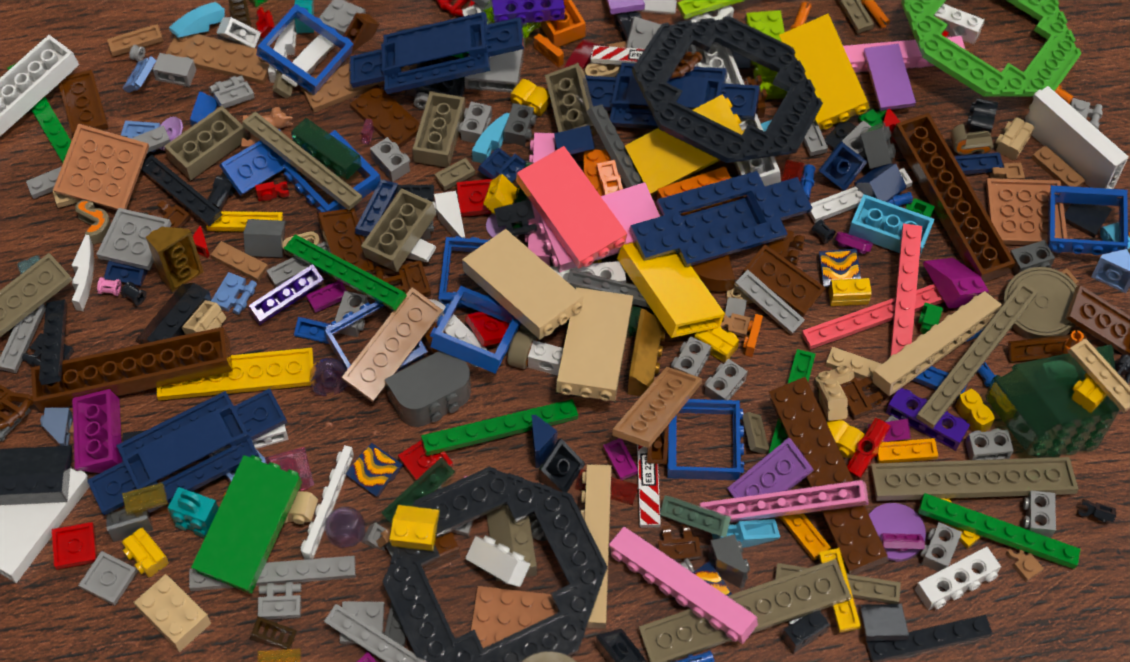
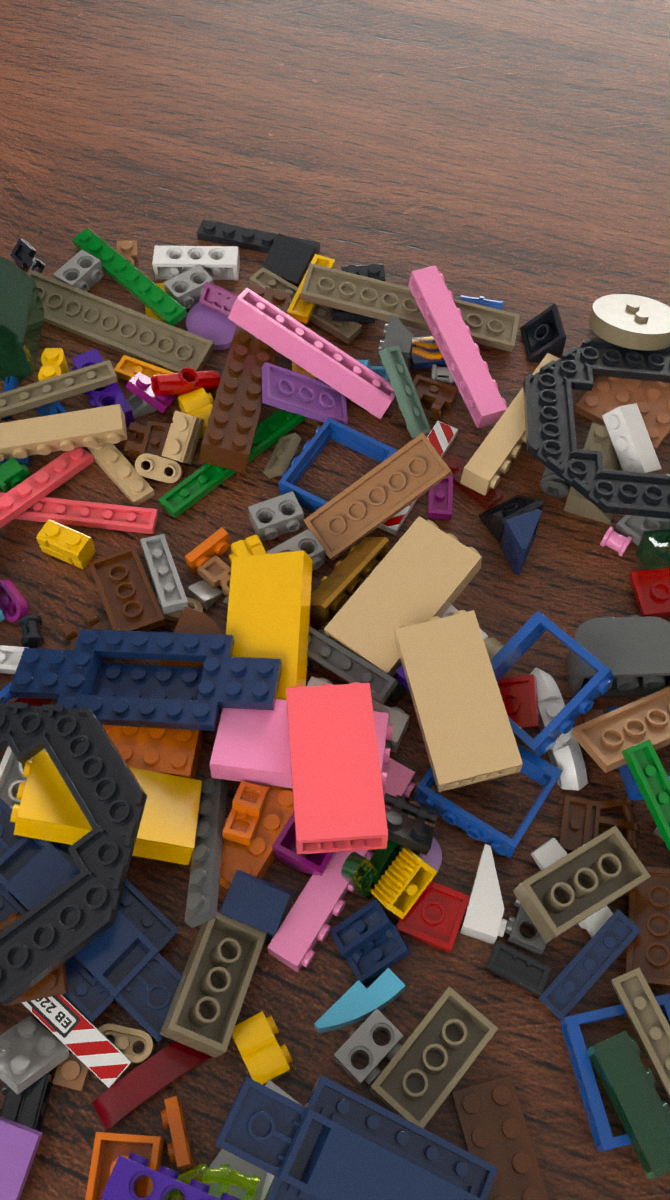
camera: 150 degrees left, 0 degrees up
(367, 131) = (546, 1129): clear pink tile -> none
(387, 155) = (539, 1050): light grey brick -> none
(455, 173) = (444, 971): dark tan plate -> none
(497, 427) = (567, 587): green plate -> none
(519, 124) = (310, 1009): dark grey brick -> none
(839, 265) = (51, 580): slope -> none
(989, 449) = (69, 338): light grey brick -> none

